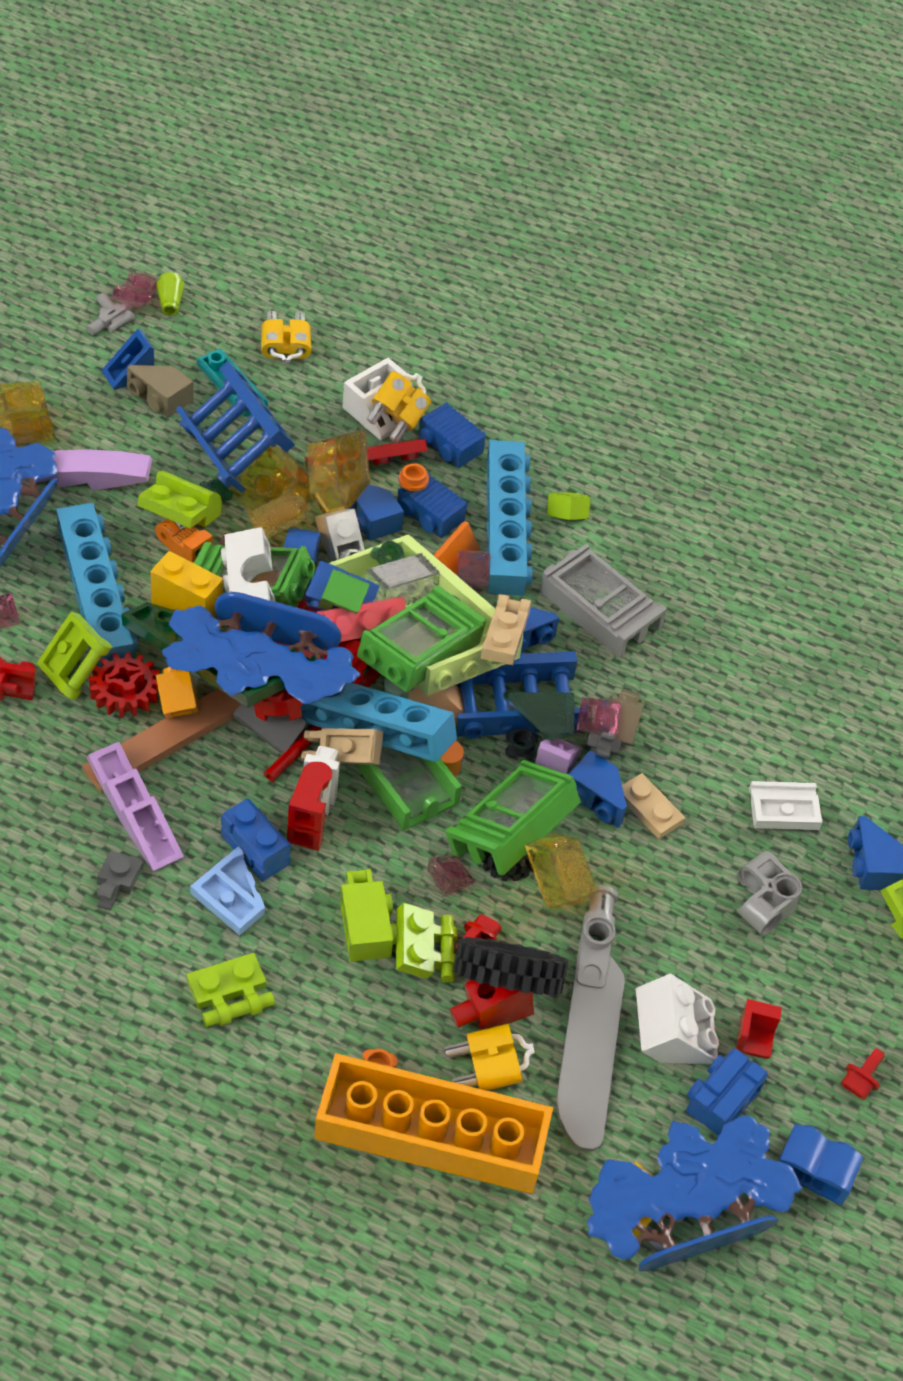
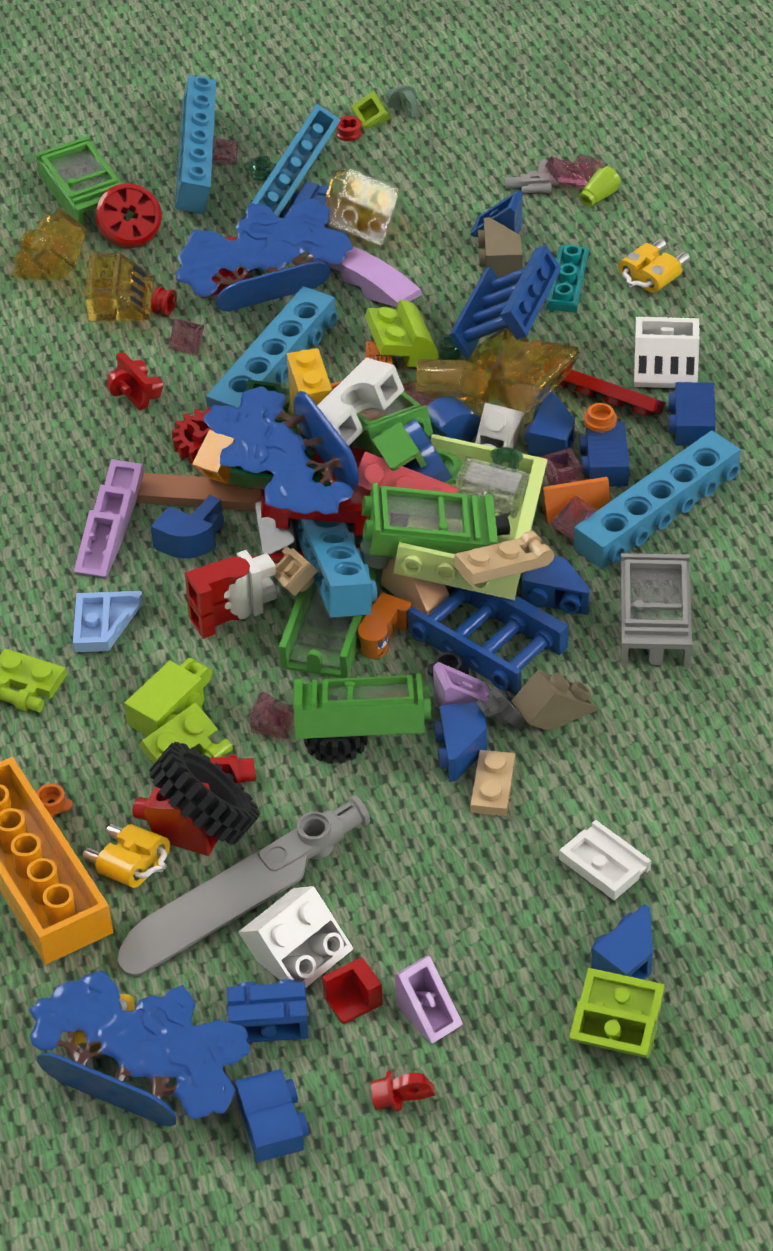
camera: 55 degrees right, 5 degrees down
(67, 649) = (189, 391): lime plate -> none
(116, 876) = (44, 557): dark grey plate -> none
(212, 776) = (187, 534): none -> blue brick
(257, 837) = (158, 594): blue brick -> none
(401, 402) = (667, 358): yellow piece -> none
(418, 530) = (563, 467): none -> clear pink slope
(545, 711) = (471, 644): clear green slope -> none
(561, 870) = (336, 763): clear yellow torso -> none
(568, 505) = (728, 525): lime slope -> none
(599, 715) = (517, 680): clear pink slope -> none
(768, 882) = (495, 915): light grey piece -> none
(810, 996) = (426, 1000): none -> lavender slope

